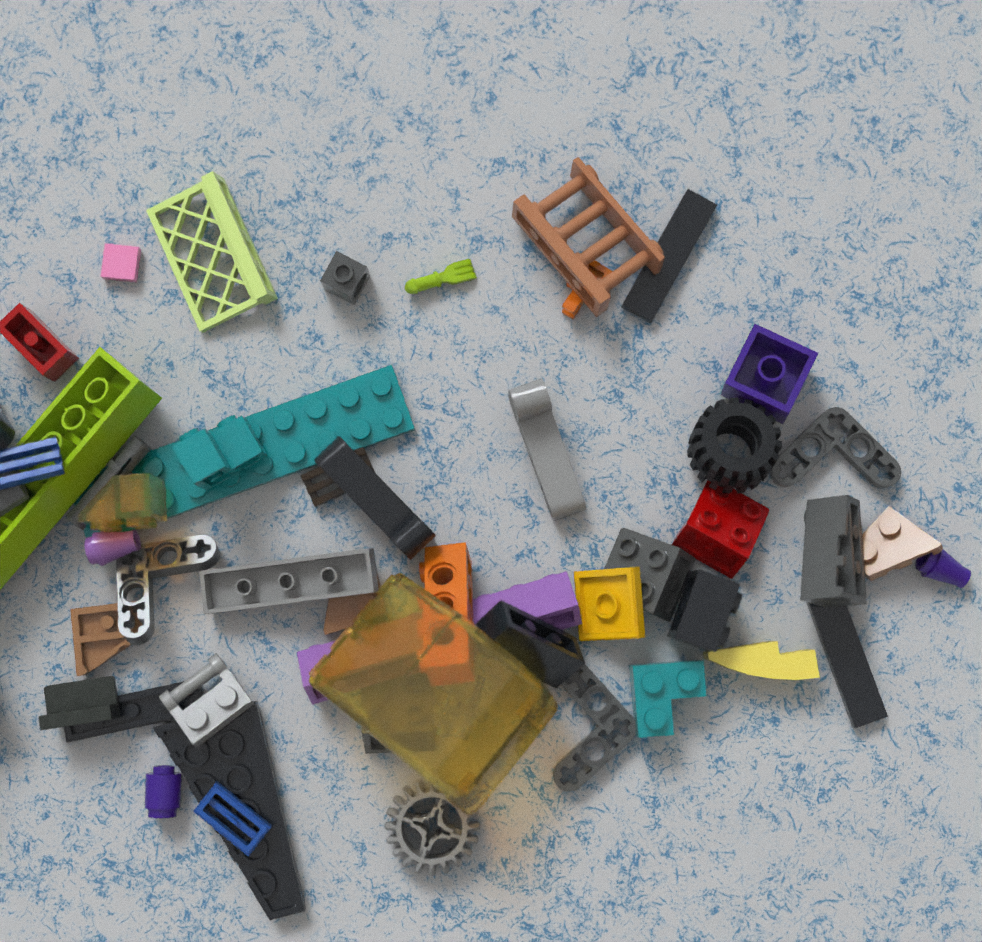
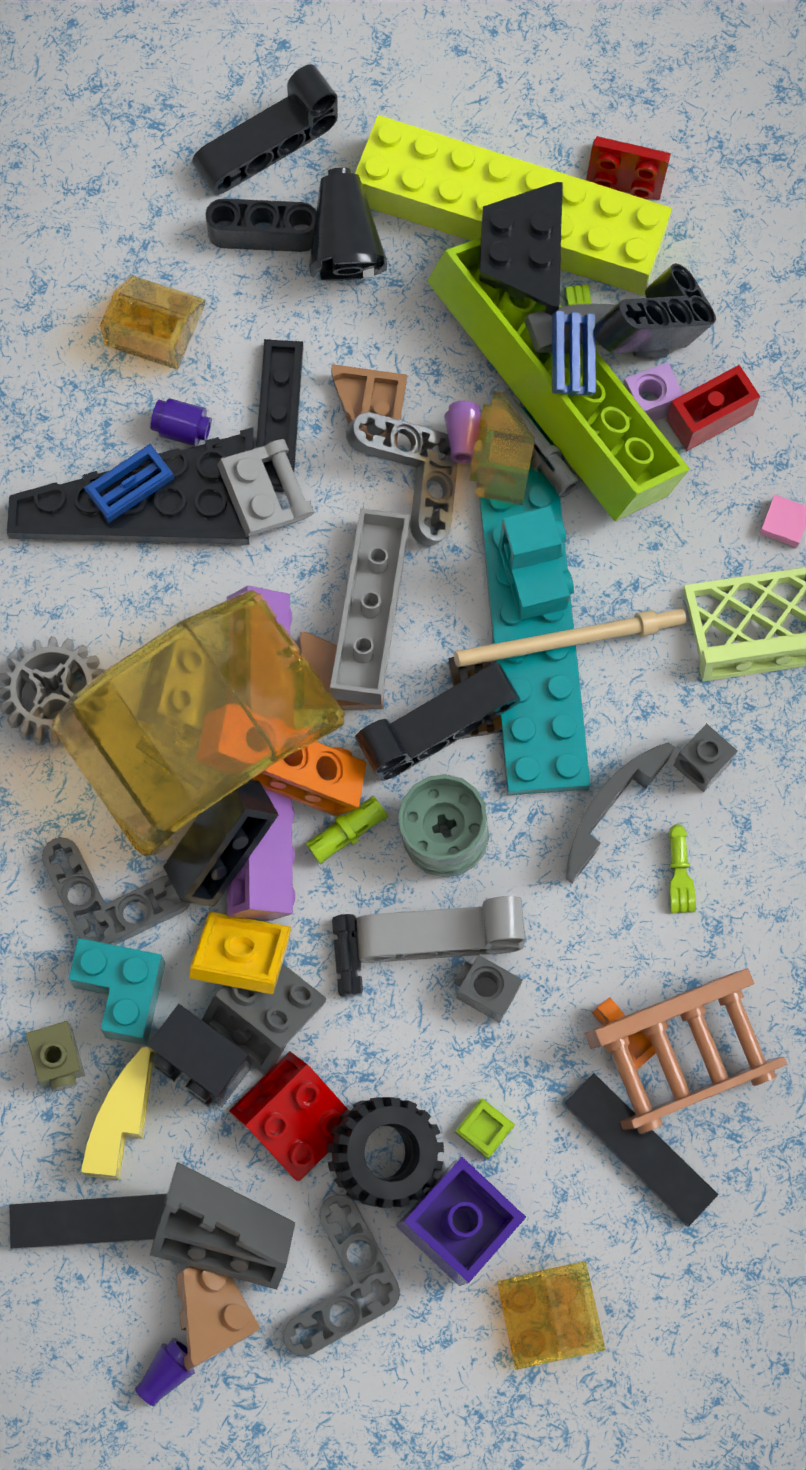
camera: 100 degrees right, 10 degrees down
(25, 389) = (659, 382): none -> lavender brick
(74, 846) = (151, 321): none -> clear yellow slope
(80, 703) = (301, 360): pearl dark grey panel -> none
(244, 356) = (643, 624): none -> tan bar
(441, 465) = (441, 802): none -> sand green wheel
(445, 358) = (640, 769): none -> dark grey slope
(482, 549) = (346, 829): none -> lime pin
(583, 520) = (347, 955): none -> black axle
(584, 388) = (492, 1006): none -> dark grey brick
(687, 377) = (485, 1128): none -> lime tile
(732, 727) = (55, 1056): none -> olive brick
(817, 288) = (550, 1315): none -> clear yellow slope

